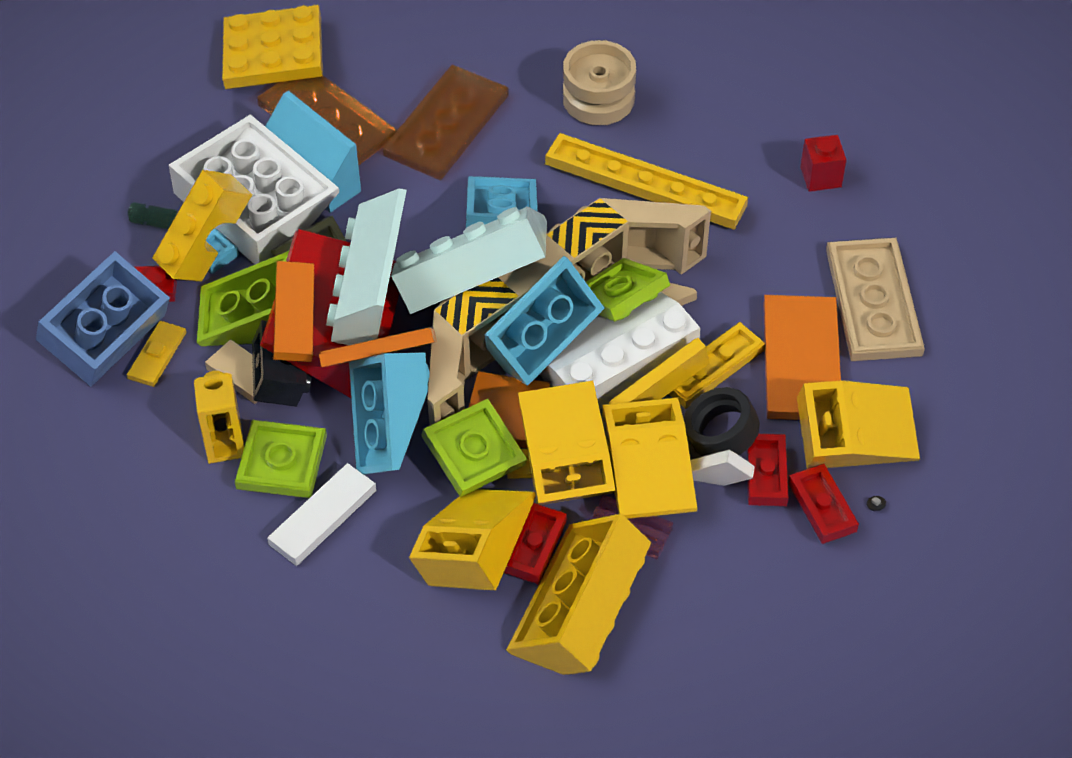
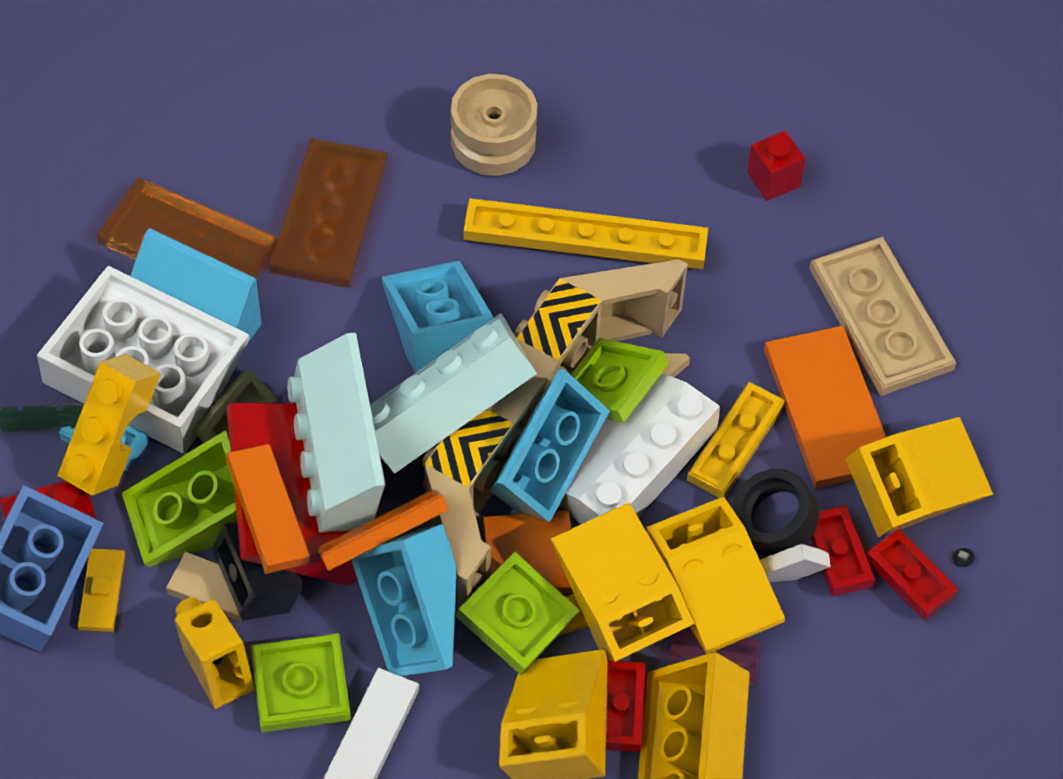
camera: 20 degrees left, 5 degrees up
(272, 46) = (89, 165): yellow plate -> none
(667, 375) = (696, 473): yellow tile -> none

